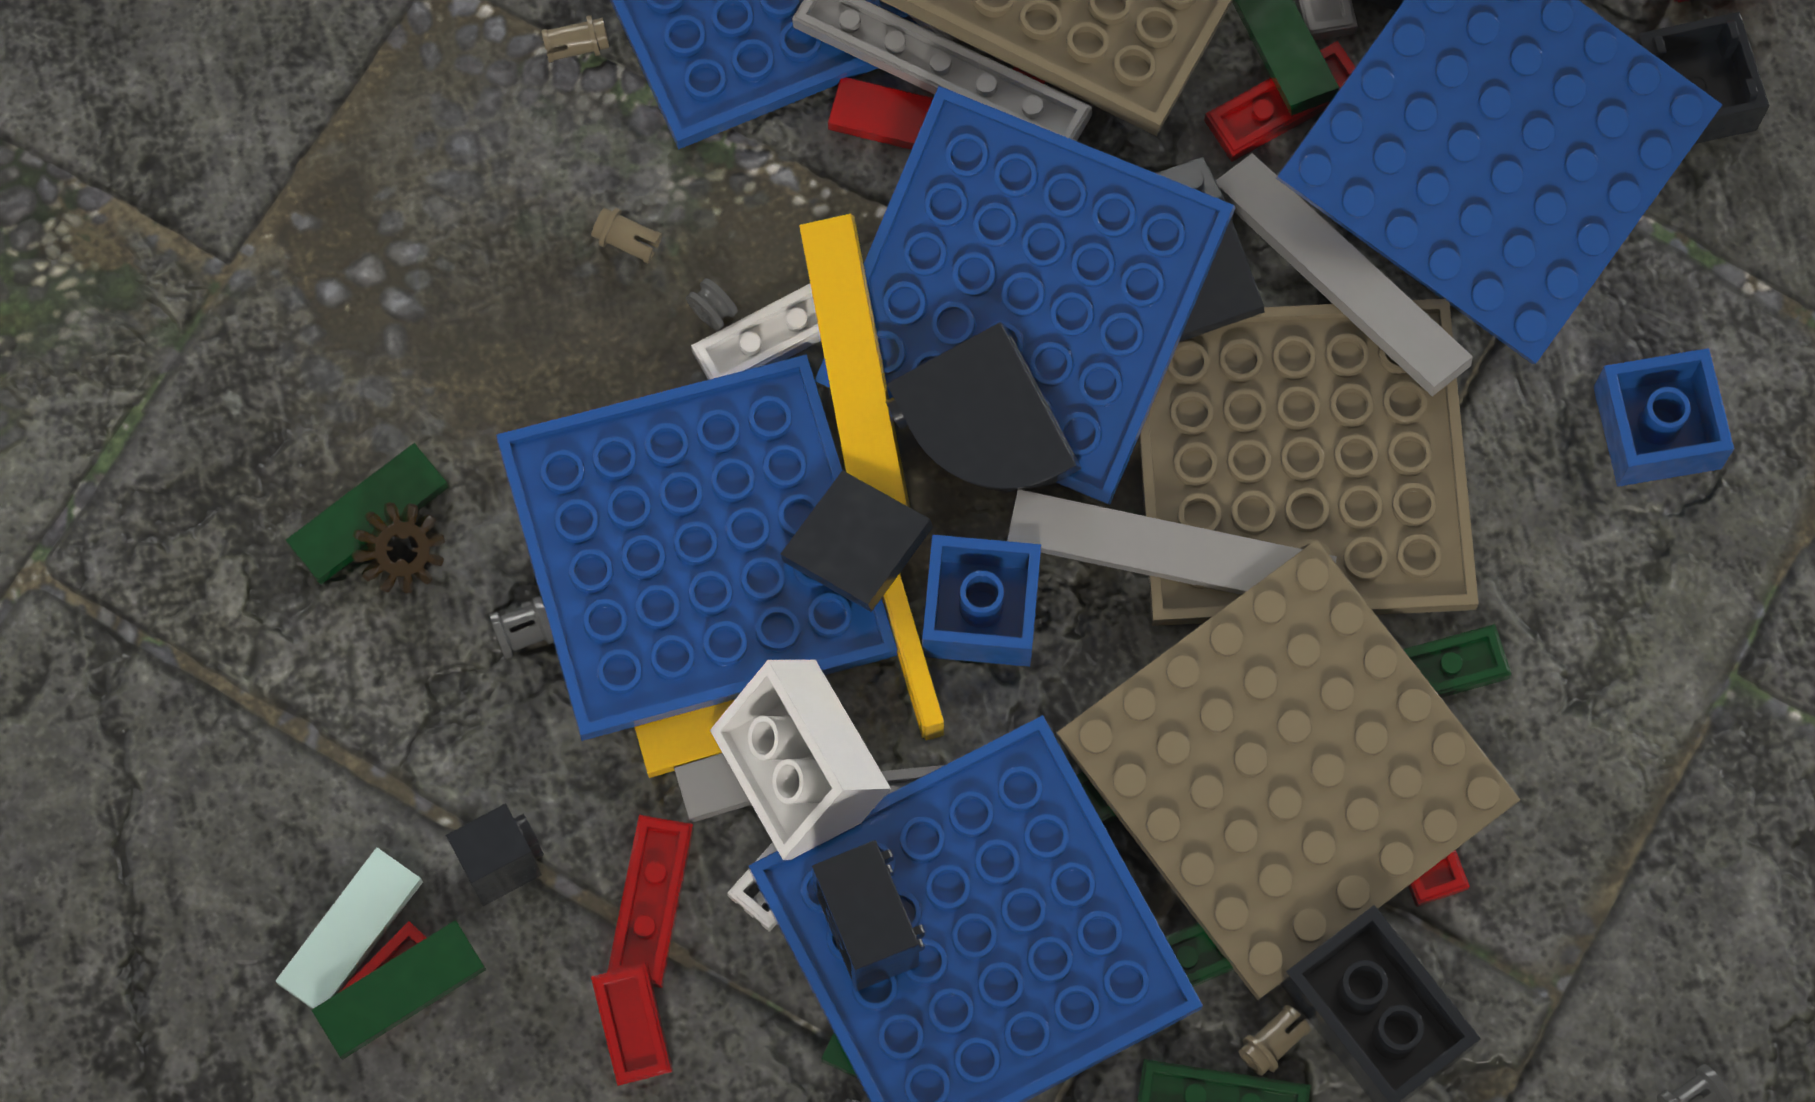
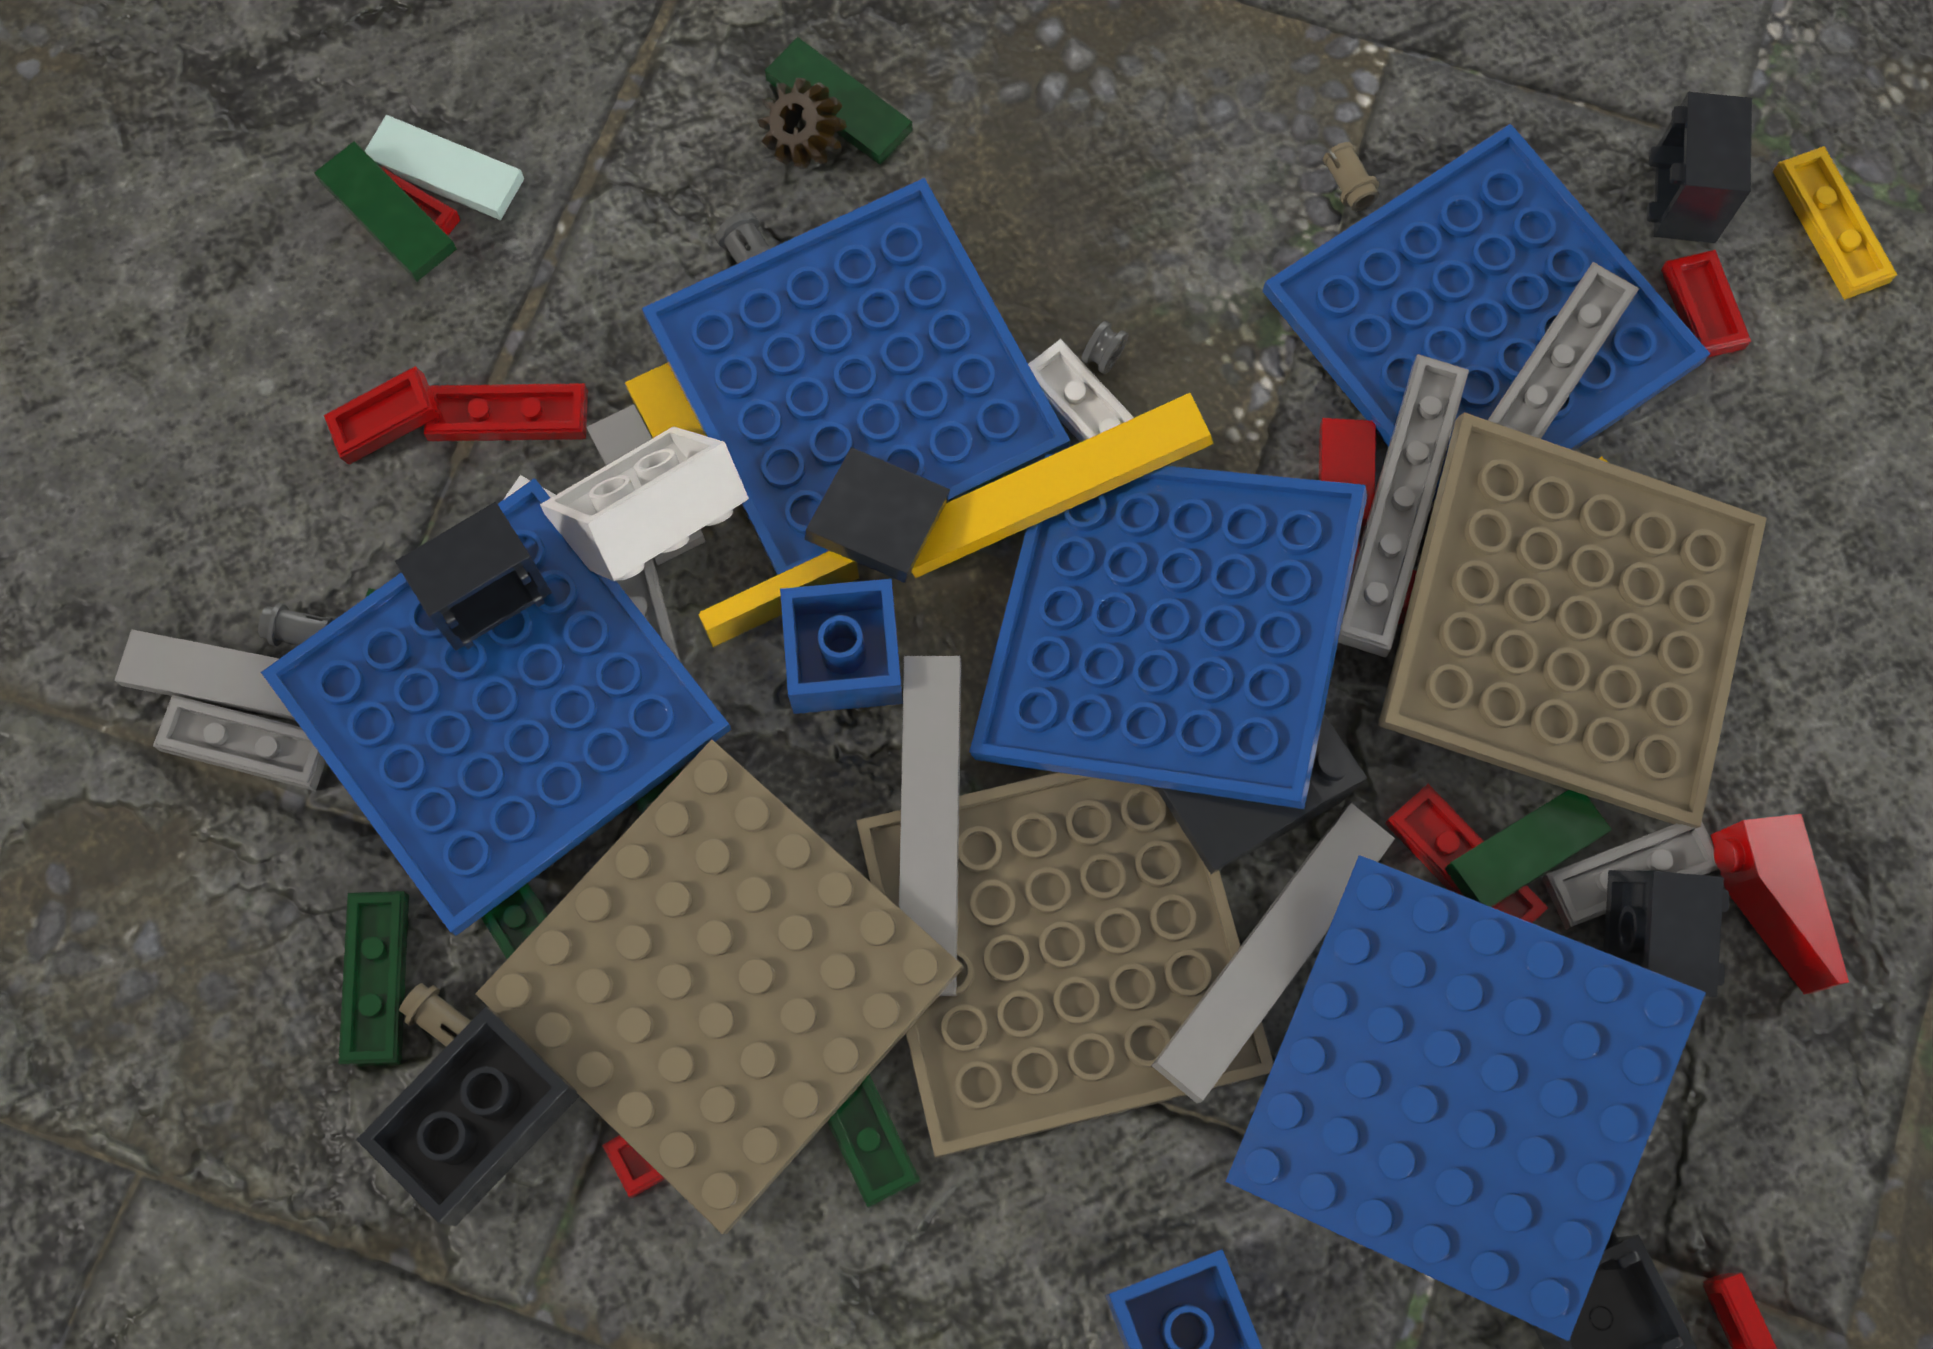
camera: 80 degrees right, 0 degrees up
(497, 853) = (513, 256): black brick -> none
(623, 234) = (1162, 250): dark tan pin -> none
(984, 416) = (1028, 609): black brick -> none

